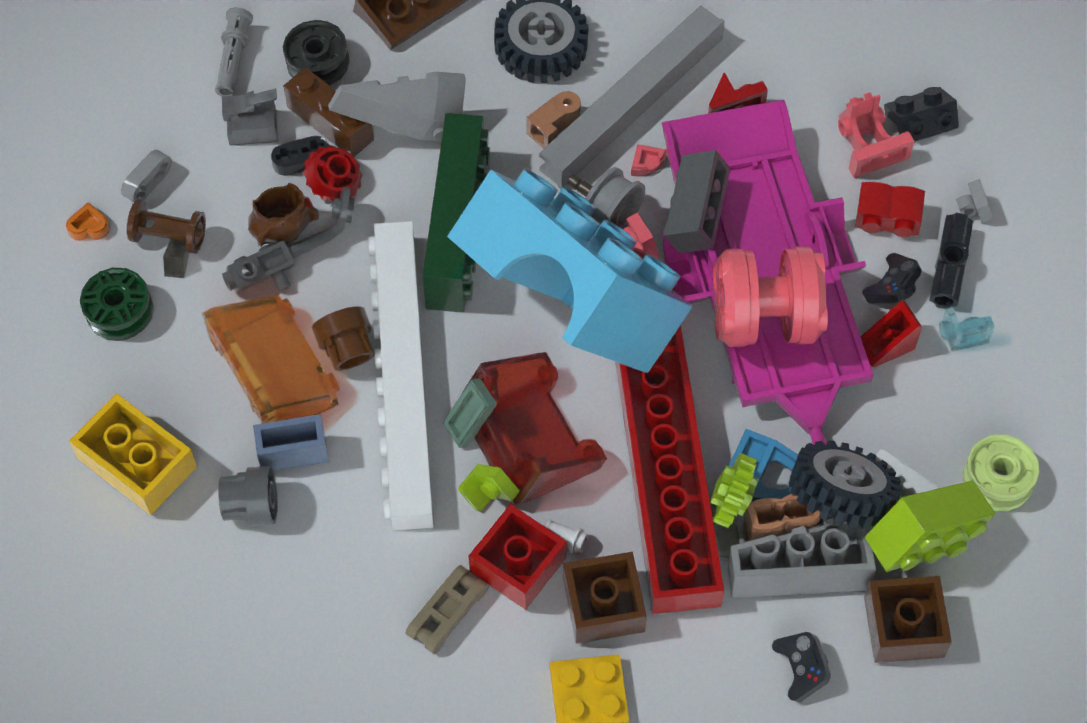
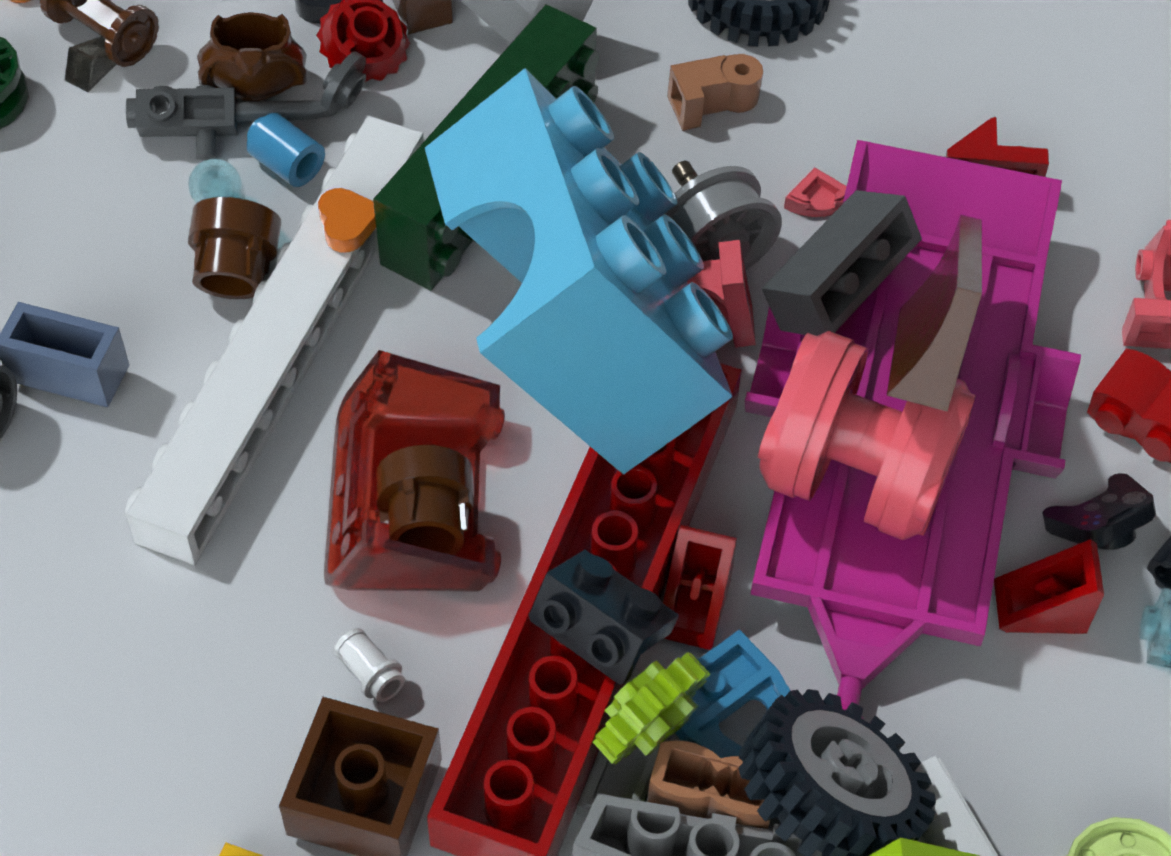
camera: 25 degrees right, 5 degrees down
(271, 359) = (109, 232): clear orange windscreen -> none
(313, 306) = (215, 179): none -> clear light blue brick
(331, 264) = (285, 149): none -> dark azure brick
(405, 292) = (346, 219): none -> orange tile
(446, 608) = (129, 689): dark tan plate -> none
(469, 412) = (334, 420): sand green tile -> none
(486, 484) = (294, 536): lime bracket -> none
(518, 556) = (272, 658): red brick -> none
(548, 433) = (426, 496): none -> reddish brown piece
(631, 96) = (846, 98): light grey tile -> none
(682, 454) = (601, 614): none -> black bracket
(713, 416) = (699, 584): none -> red slope
(781, 215) = (938, 323): none -> arch

